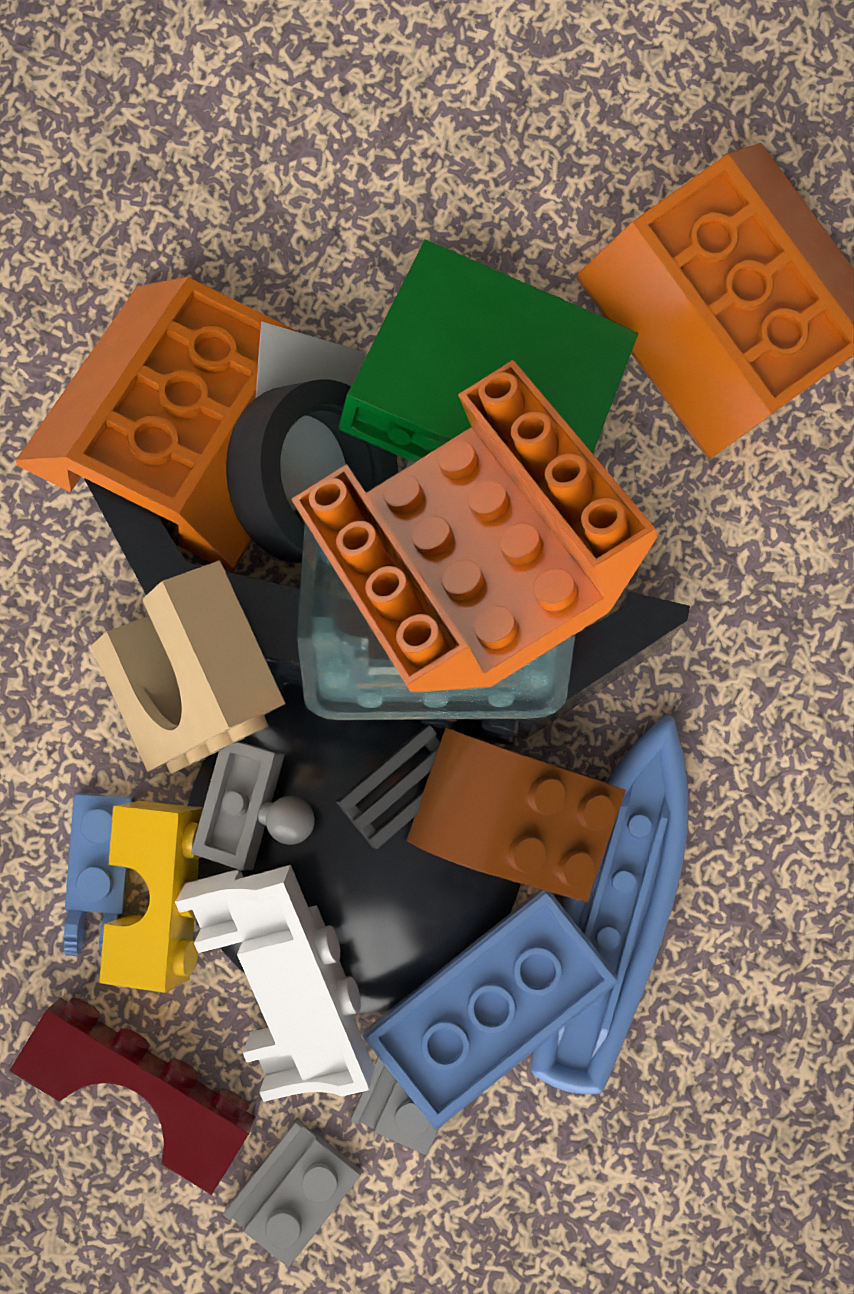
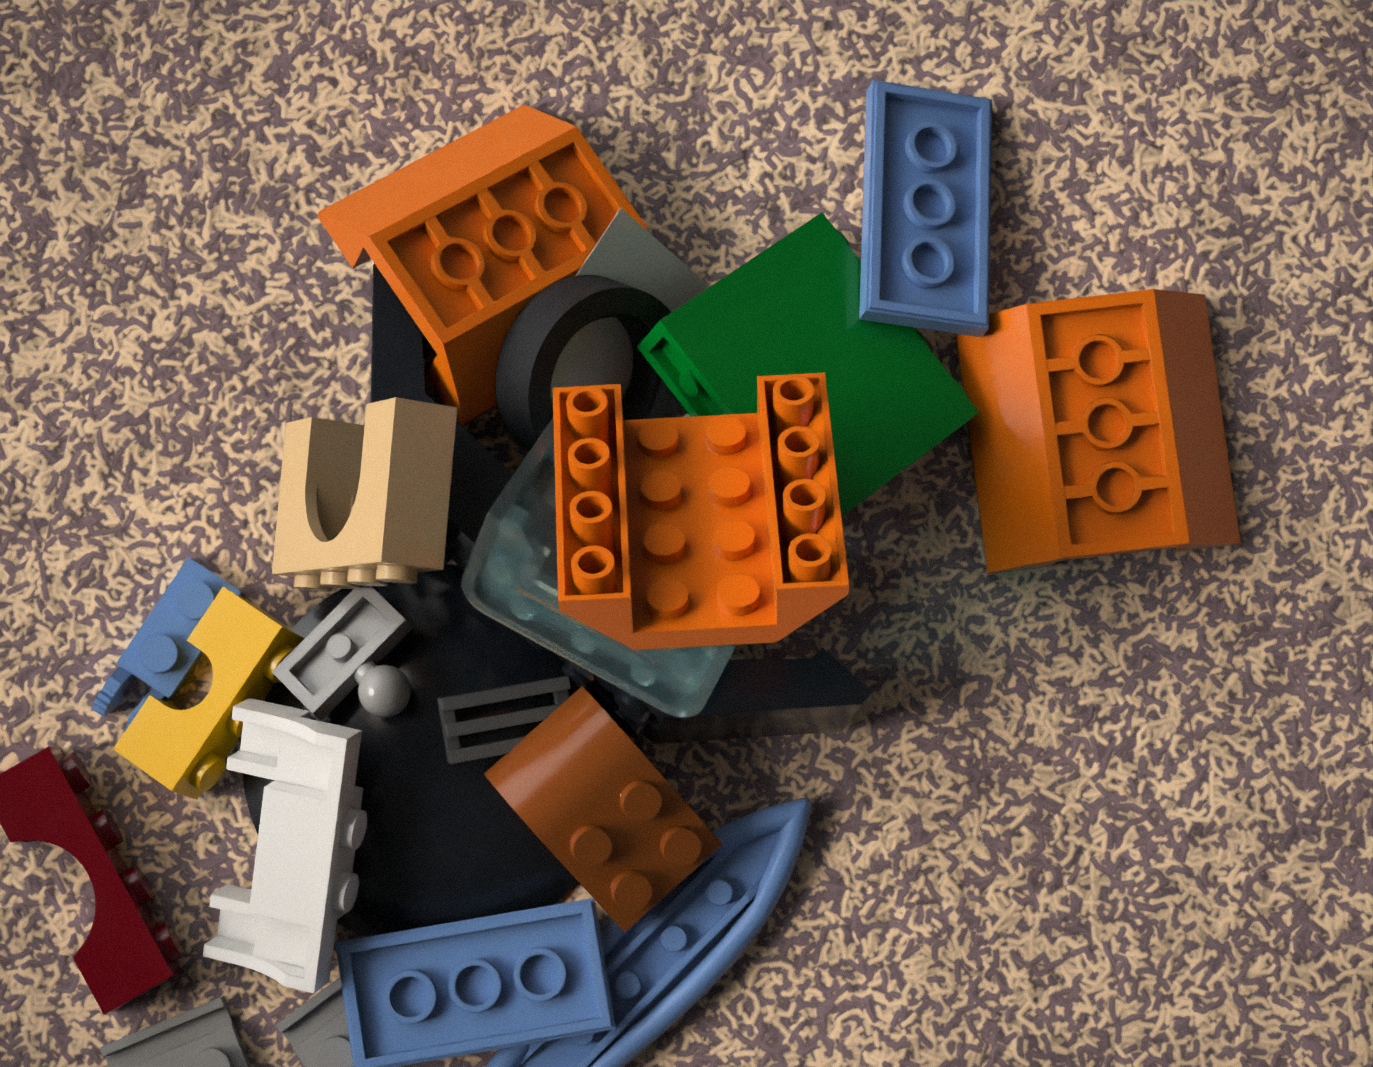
camera: 30 degrees right, 5 degrees down
(506, 192) = (926, 209): none -> medium blue tile

